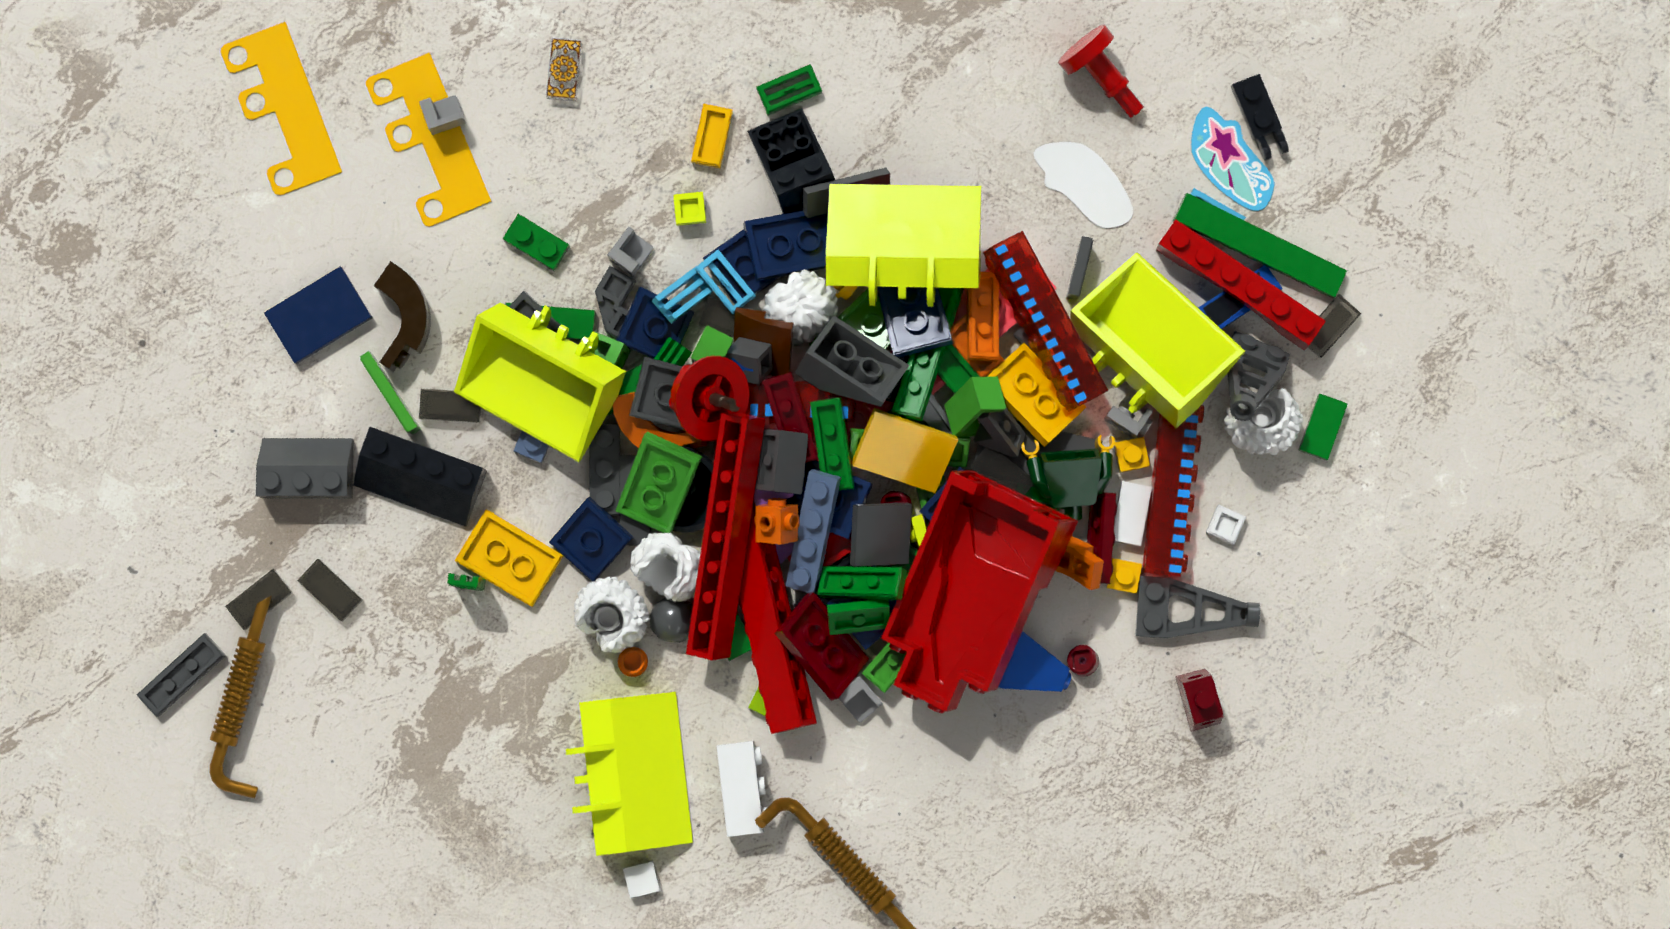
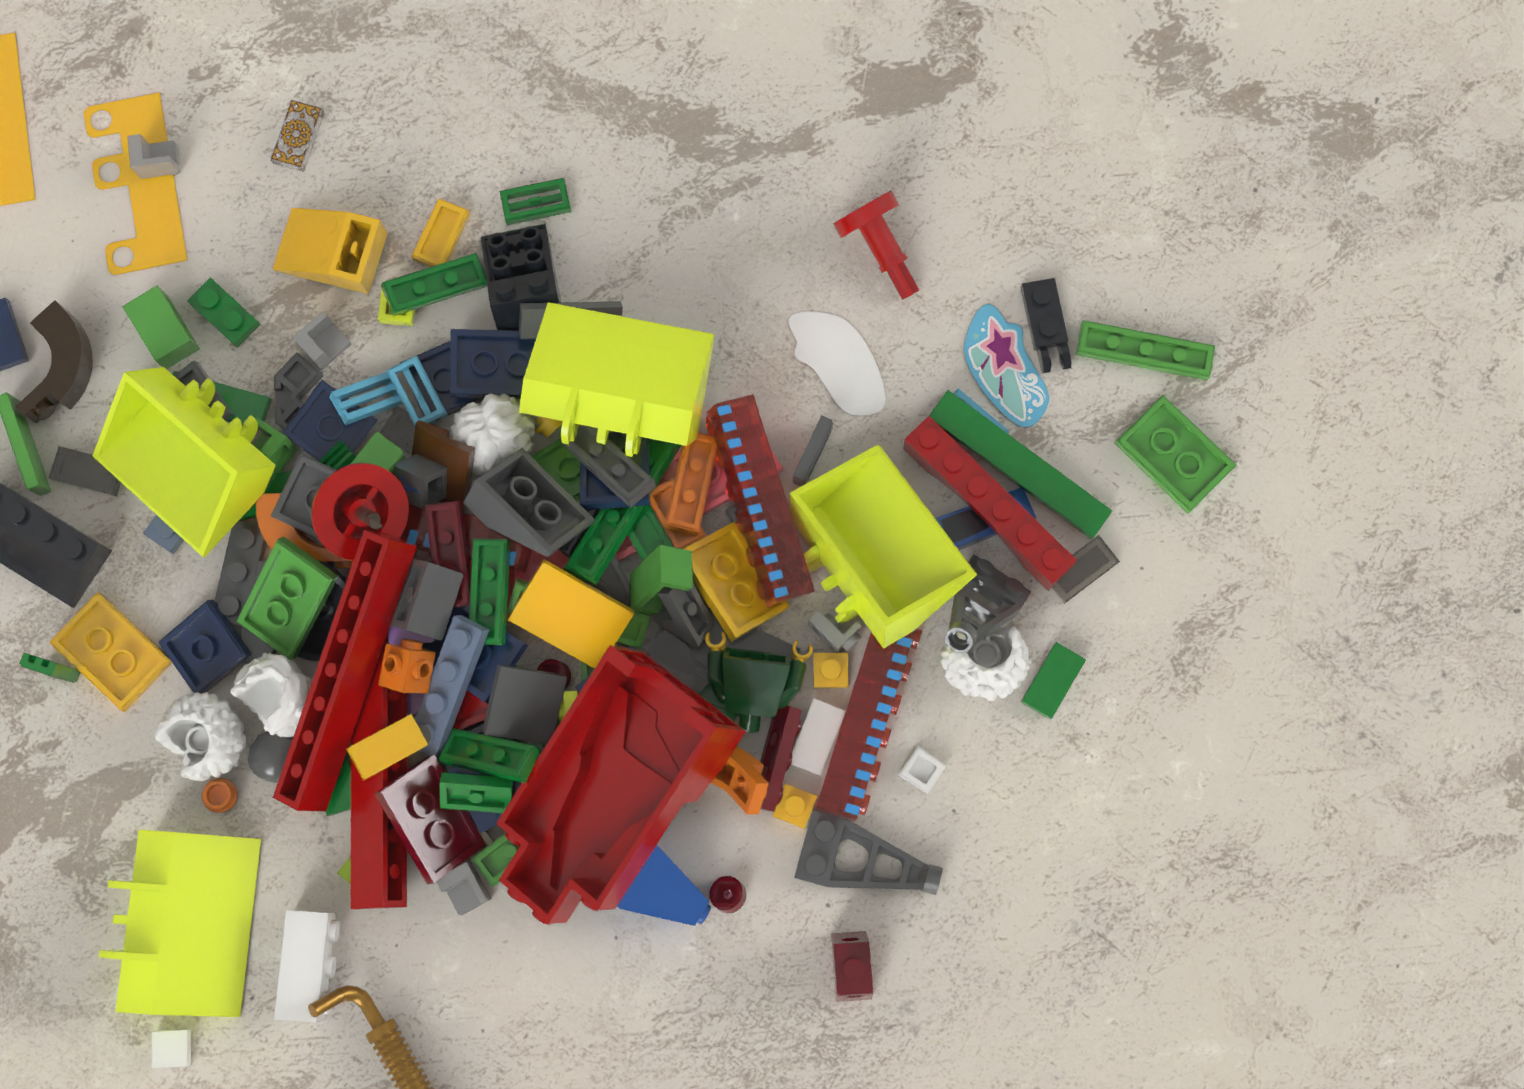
camera: 15 degrees right, 5 degrees down
(486, 266) = (161, 327): none -> bright green panel
(618, 167) = (331, 248): none -> yellow slope
(719, 182) = (434, 284): none -> green tile
(775, 592) = (387, 747): none -> yellow tile
(912, 316) = (611, 466): none -> dark grey tile
(1350, 122) = (1145, 350): none -> bright green tile
(1392, 210) = (1175, 454): none -> bright green tile

